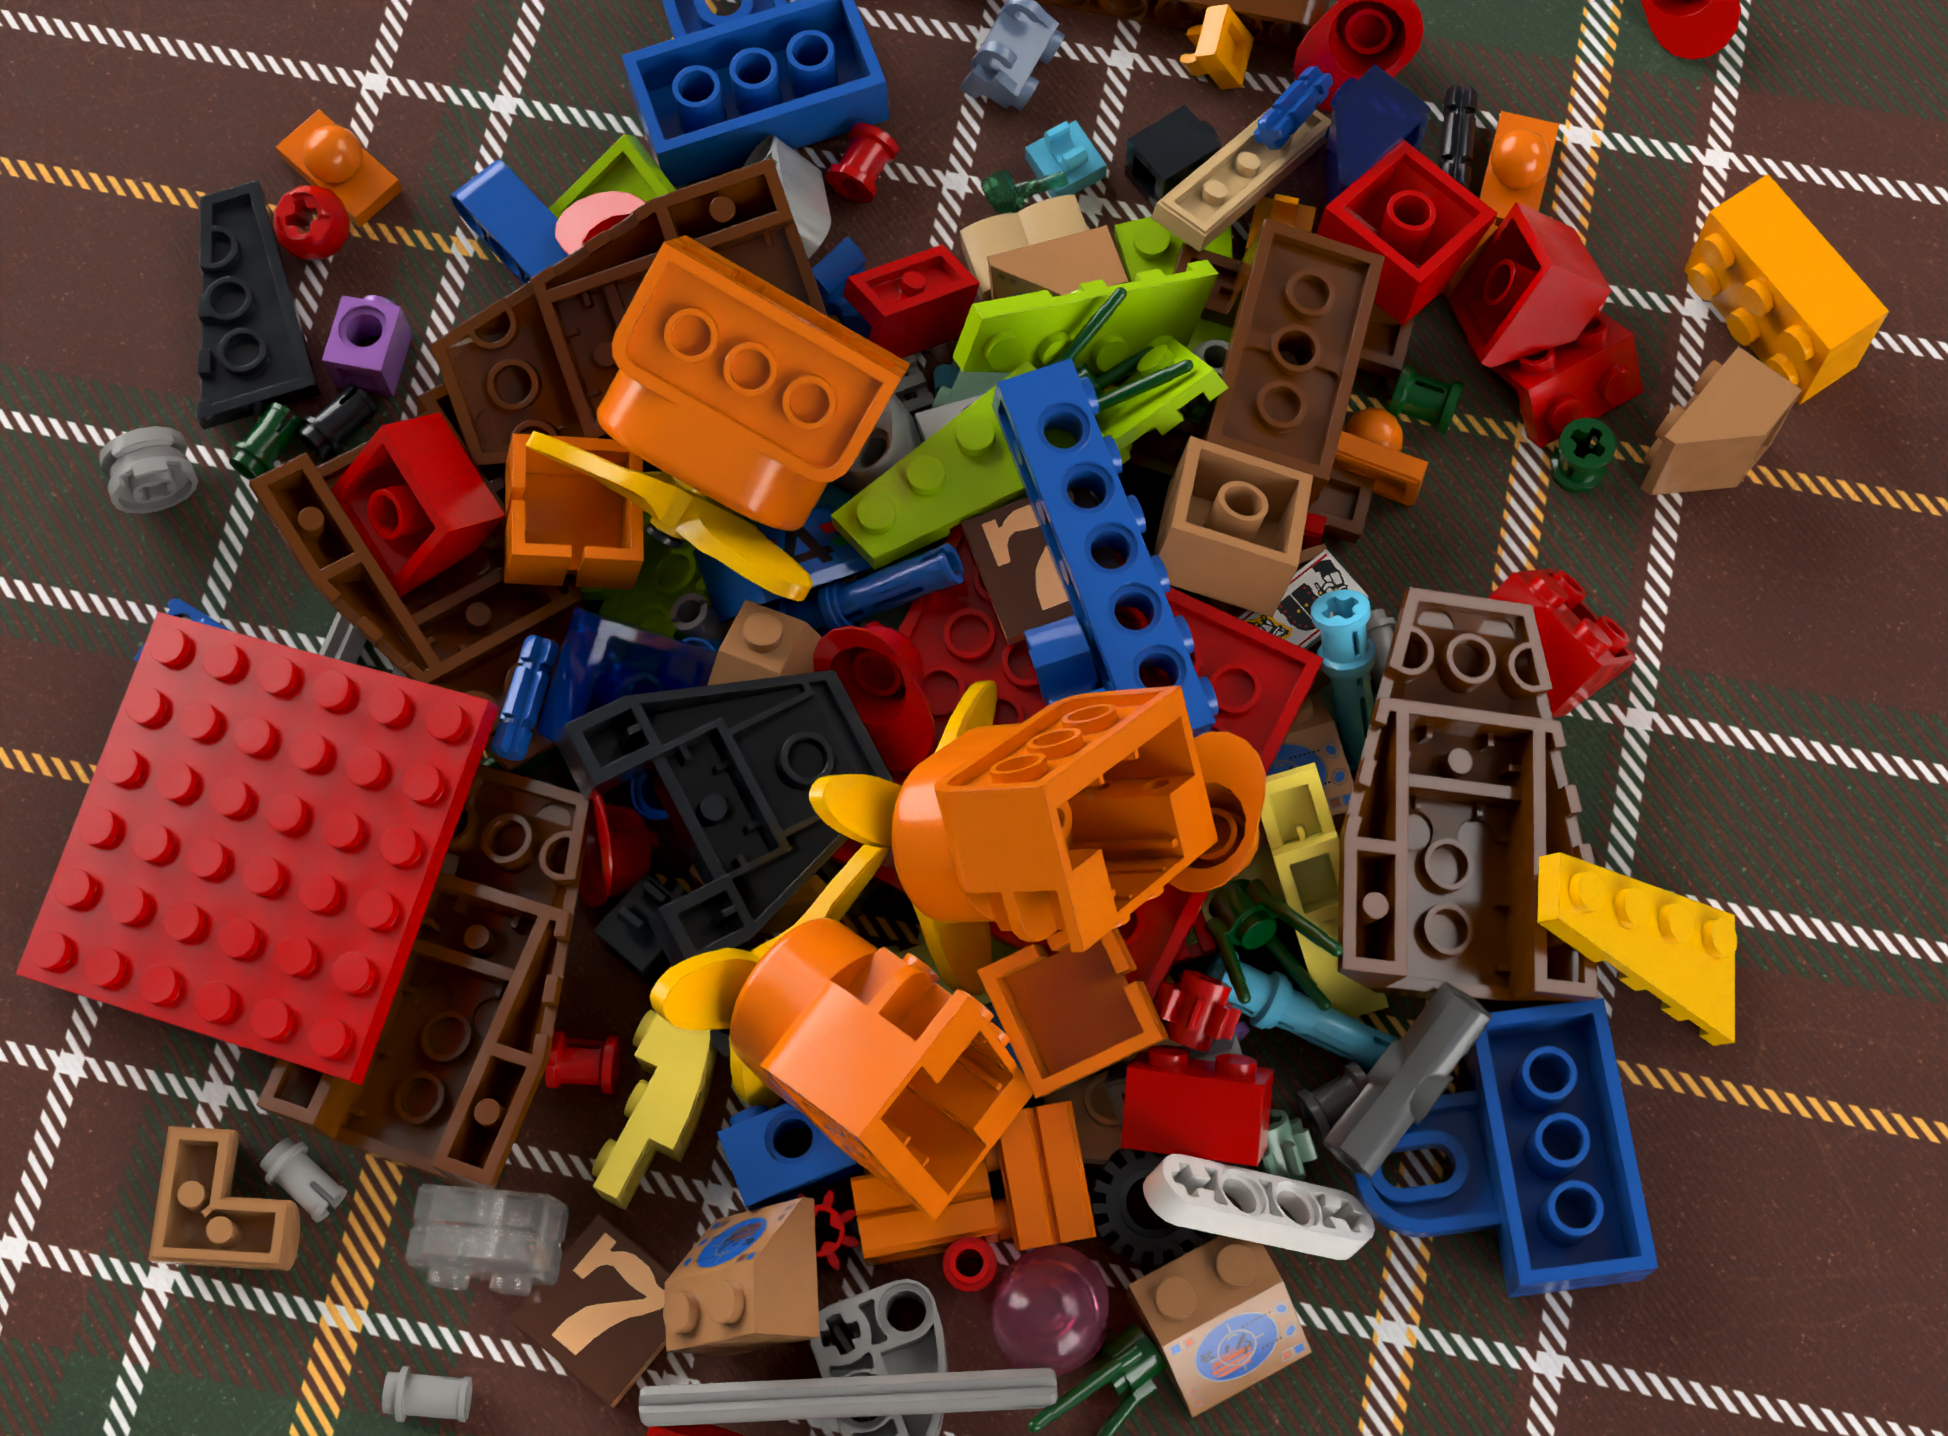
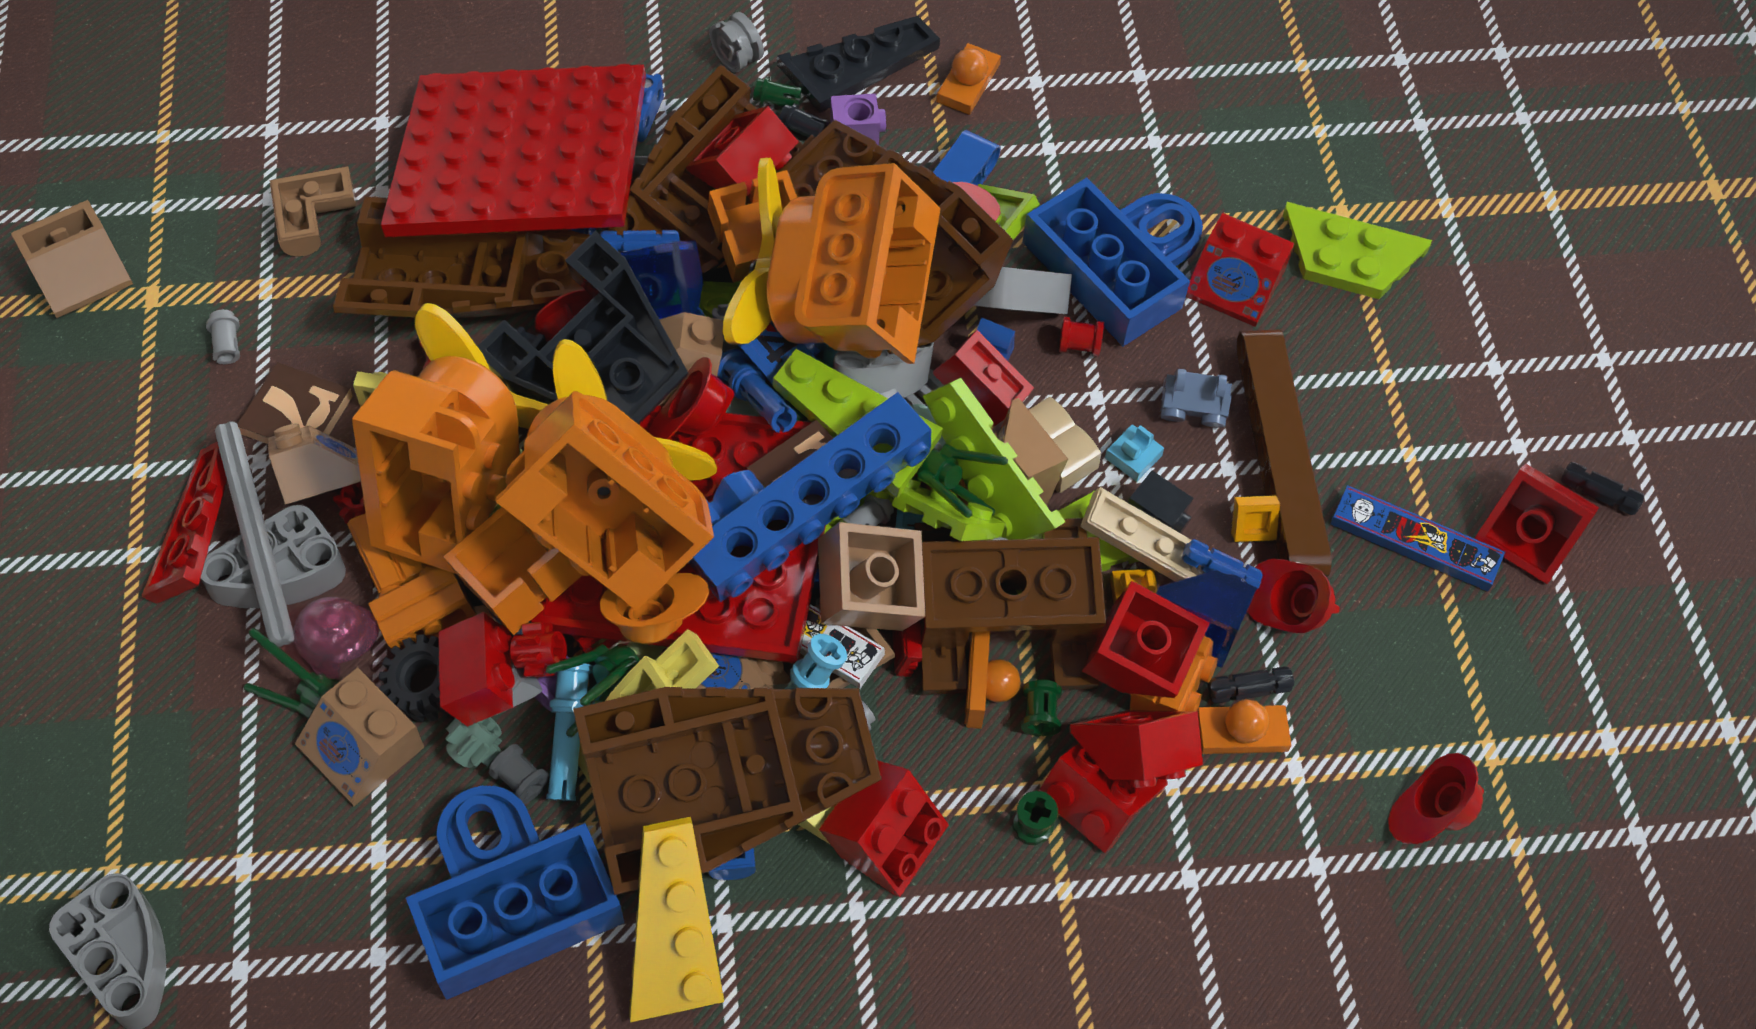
camera: 65 degrees right, 10 degrees down
(296, 213) = (922, 71): red piece -> none
(302, 1178) = (337, 241): light grey pin -> none
(488, 1237) = (317, 334): clear brick -> none
(965, 1248) = (356, 583): red pin -> none
(1009, 198) = (1096, 421): clear green hand -> none
(1193, 1196) = (415, 730): white beam -> none
(1407, 1080) = (530, 794): dark grey piece -> none
(1720, 428) = (1079, 893): medium nougat slope -> none
(1783, 288) = (1207, 914): light orange brick -> none

